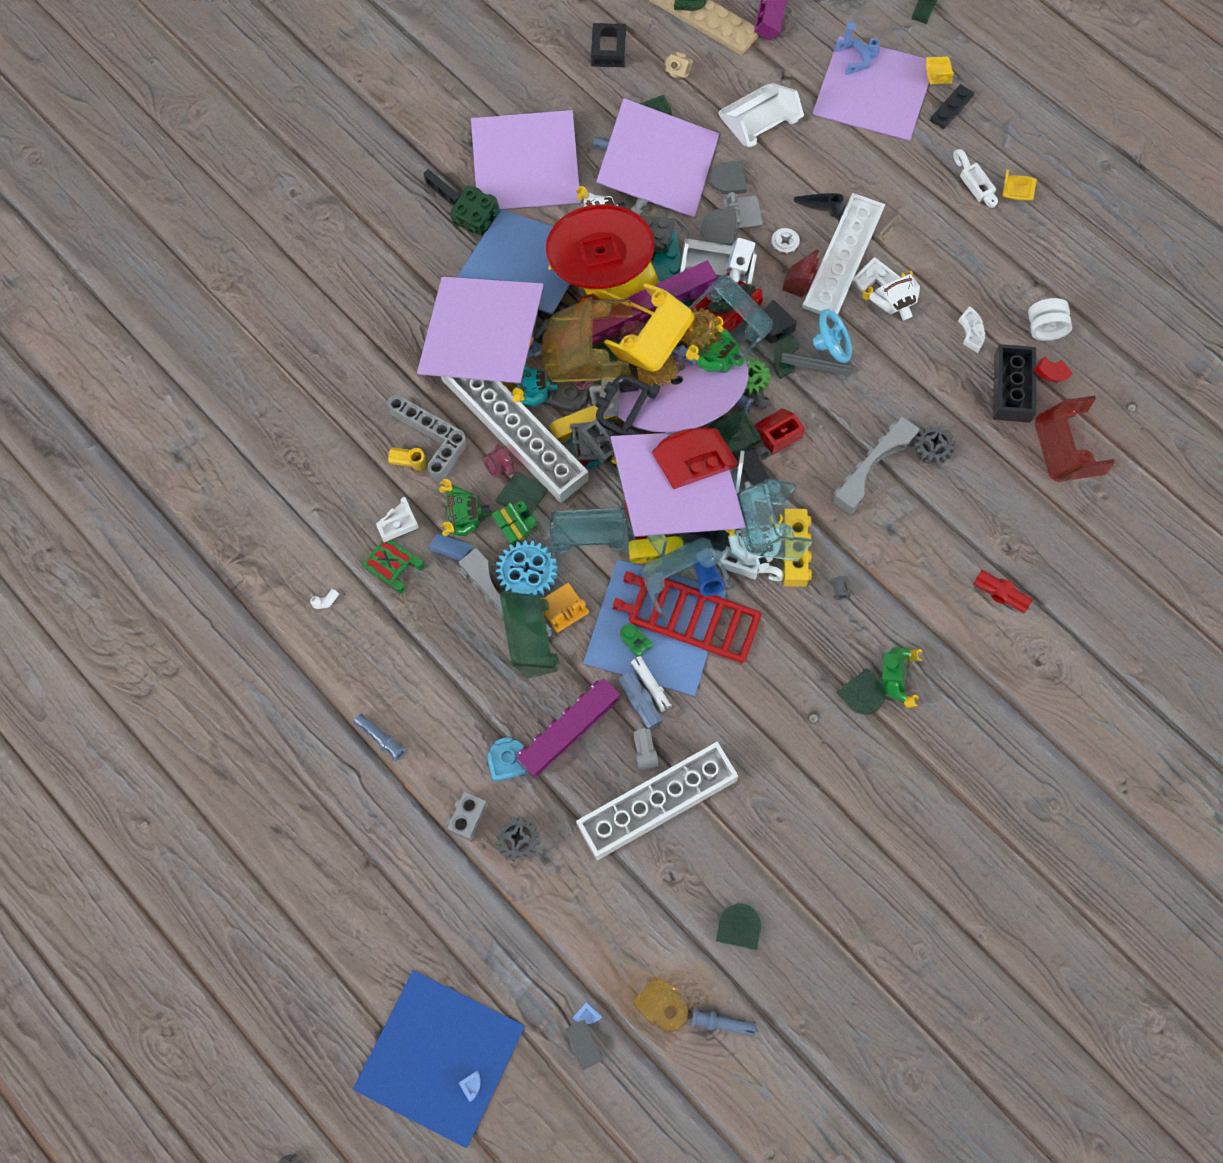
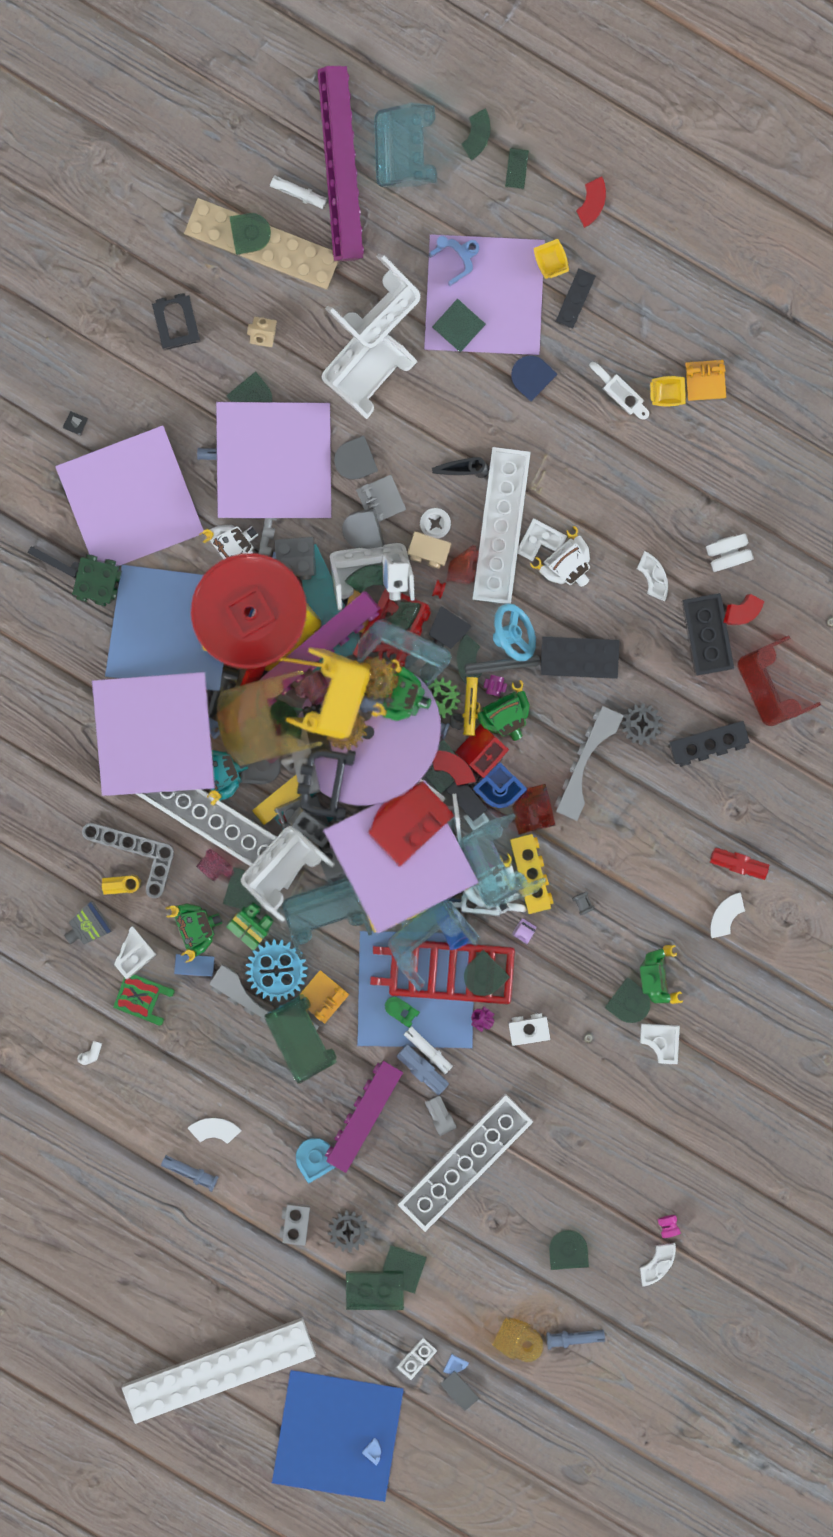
camera: 10 degrees left, 20 degrees up
(337, 945) = (218, 1370): none -> white brick
(364, 484) = (88, 925): none -> dark grey torso
(418, 701) = (215, 1128): none -> white tile
(498, 98) = (75, 423): none -> black slope
(526, 908) = (374, 1290): none -> clear green tile
(547, 996) = (416, 1359): none -> white slope
(561, 895) = (408, 1262): none -> clear green tile
(562, 467) = (278, 866): none -> white windscreen
(608, 483) = (333, 873): none -> dark grey torso
(713, 667) = (482, 1019): none -> magenta gear
(717, 261) = (366, 577): none -> clear green tile
(725, 627) = (484, 975): none -> clear green tile
(746, 696) = (540, 1032): none -> white brick
(748, 431) = (454, 766): none -> red tile
(772, 404) = (469, 730): none -> yellow pin
(774, 290) = (439, 589): none -> red bush
(775, 252) = (429, 549): none -> tan brick
(775, 596) = (524, 931): none -> lavender leg
(786, 462) = (499, 787): none -> blue brick
(803, 62) = (387, 313): none -> white windscreen
(804, 378) = (495, 685): none -> magenta gear
(808, 403) = (506, 714): none -> green torso
(813, 492) = (533, 810): none -> clear red slope
(833, 969) = (659, 1264): none -> white tile
(846, 101) = (458, 325): none -> clear green tile
(853, 929) = (669, 1226): none -> dark pink wheel
(889, 374) = (579, 657): none -> black brick
(889, 740) = (663, 1040): none -> white tile
(900, 152) = (531, 376): none -> dark blue tile
(977, 636) = (725, 914): none -> white tile
(984, 43) = (594, 202): none -> red tile
(1023, 471) = (737, 730): none -> black brick
(1054, 189) = (705, 380): none -> light orange hinge

